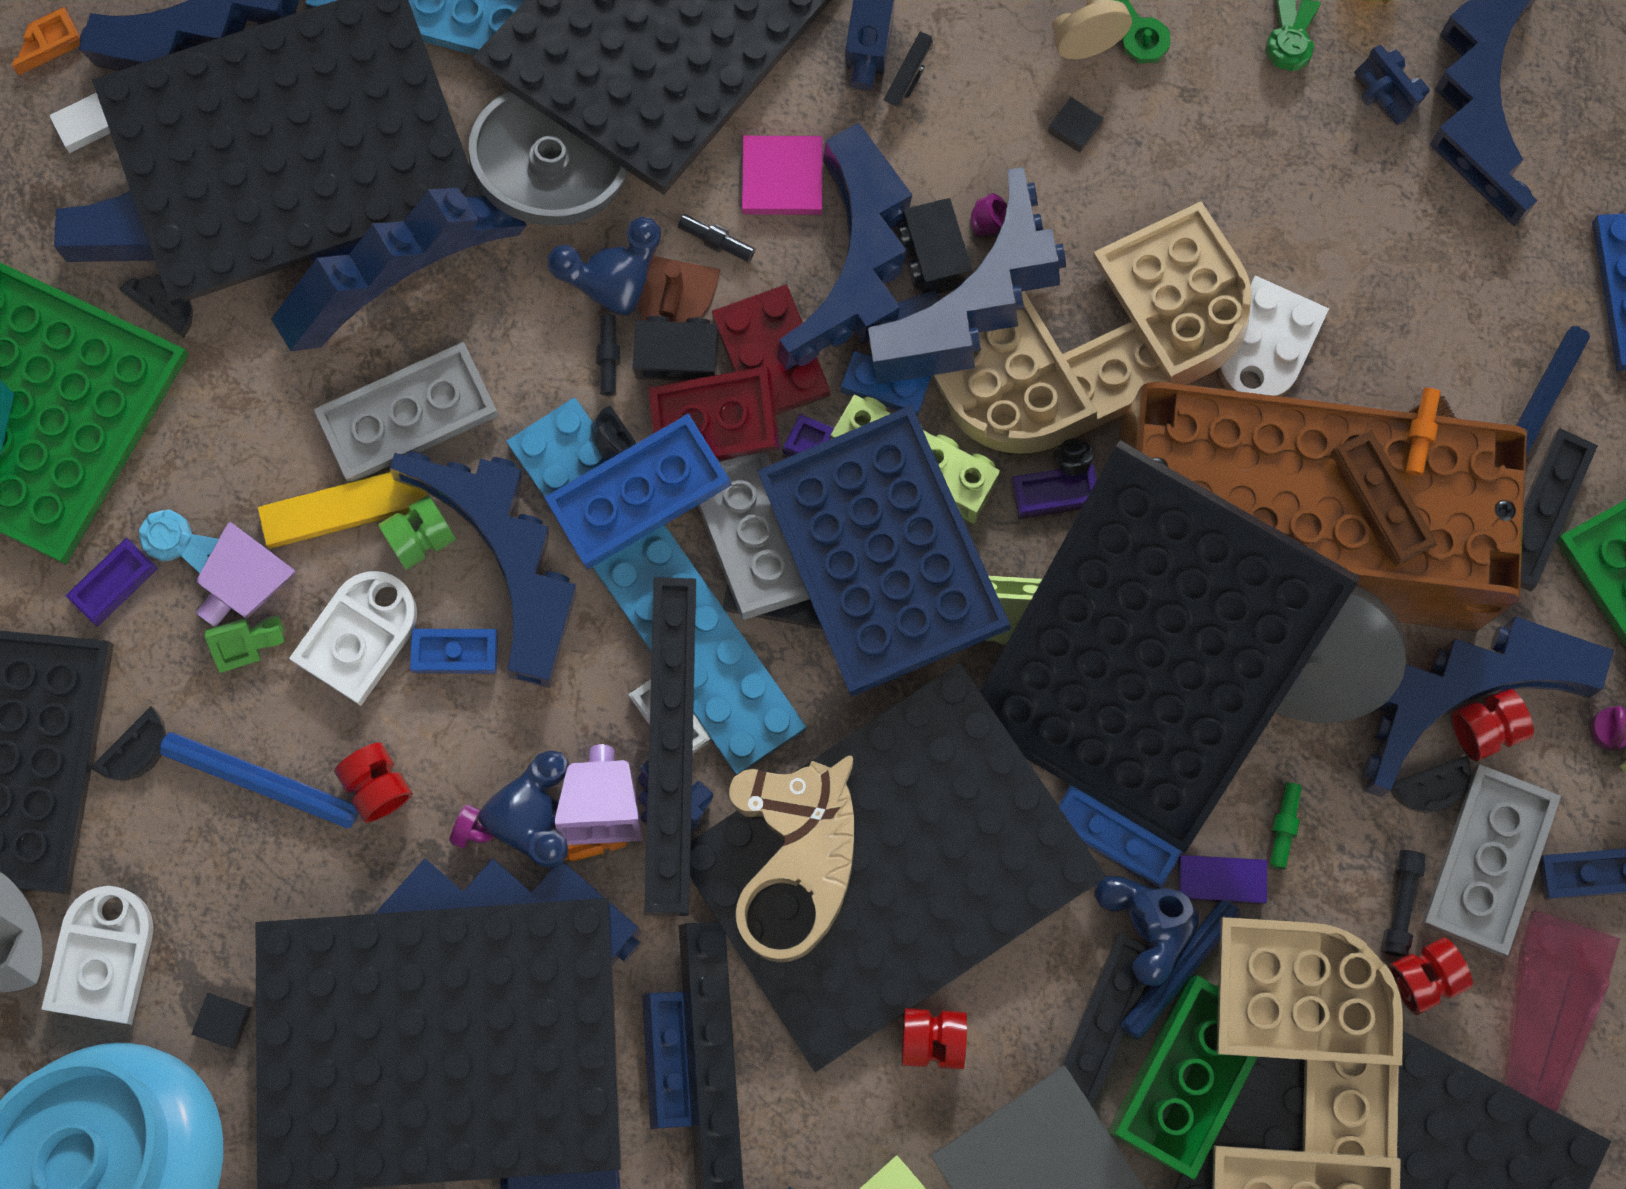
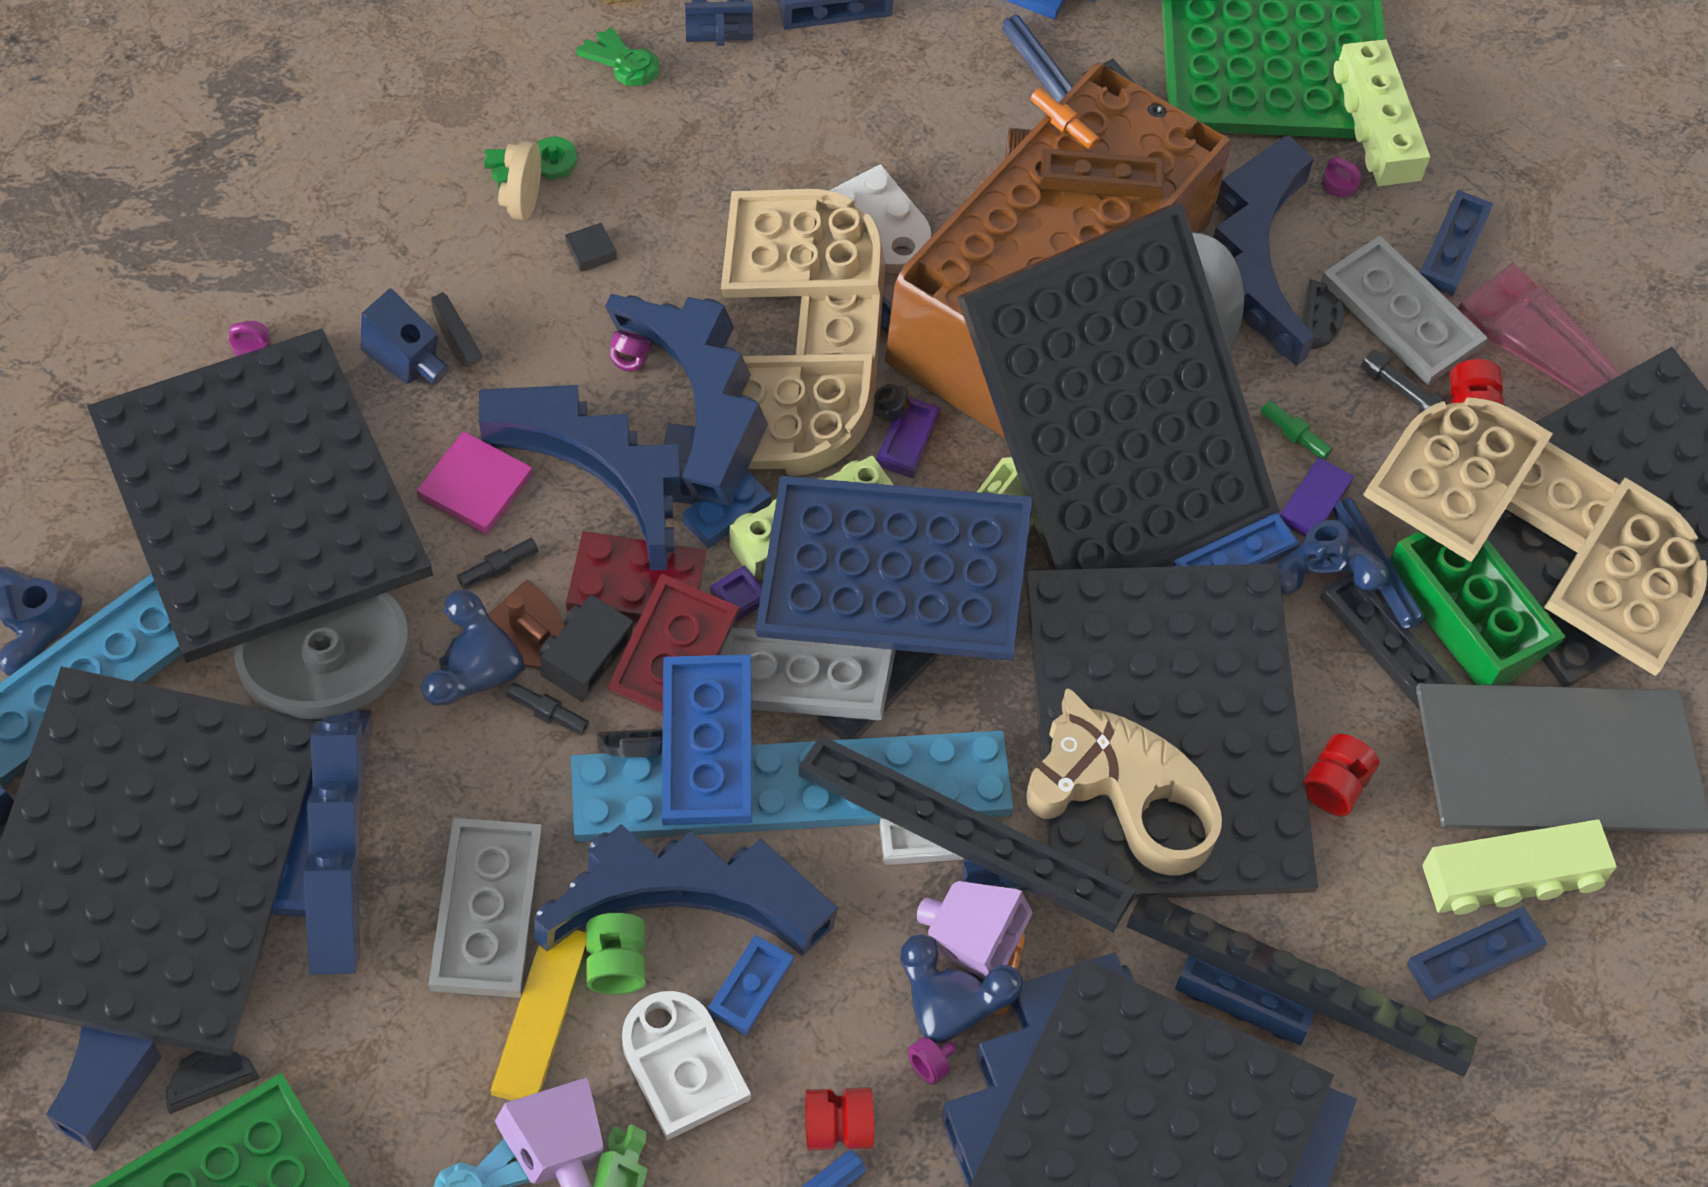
camera: 65 degrees left, 15 degrees down
(935, 246) = (642, 395): black brick -> none
(1496, 722) = (1297, 246): red wheel -> none

